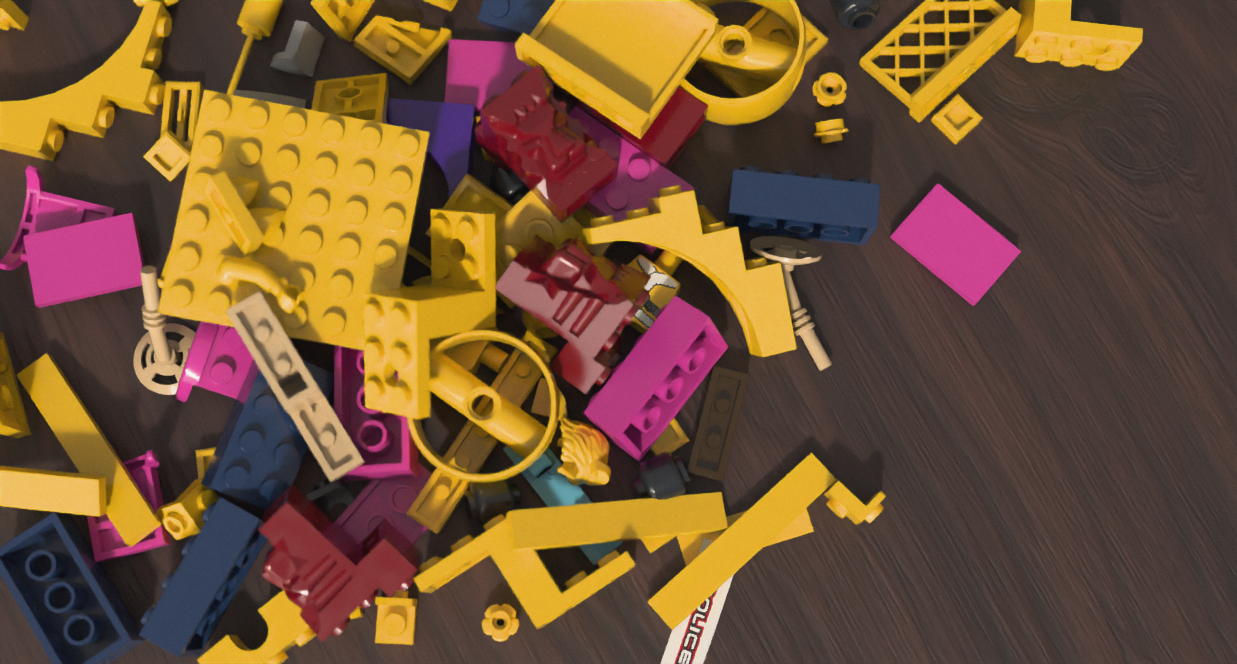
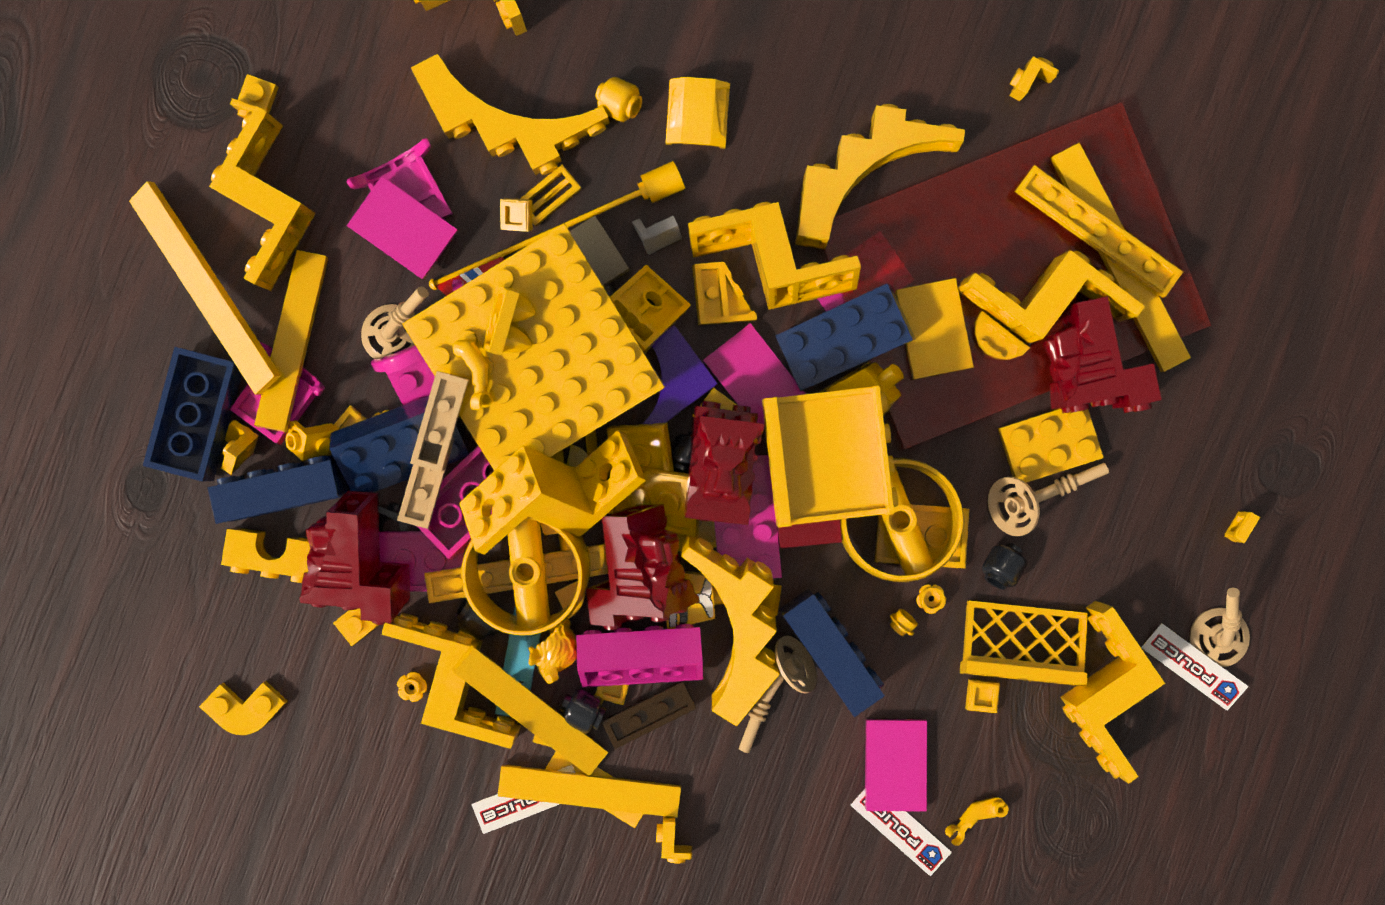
camera: 50 degrees right, 10 degrees up
(134, 581) = (240, 446): none -> yellow bracket
(1028, 291) = (906, 835): none -> white sticker
(1058, 210) = (976, 811): none -> yellow arm

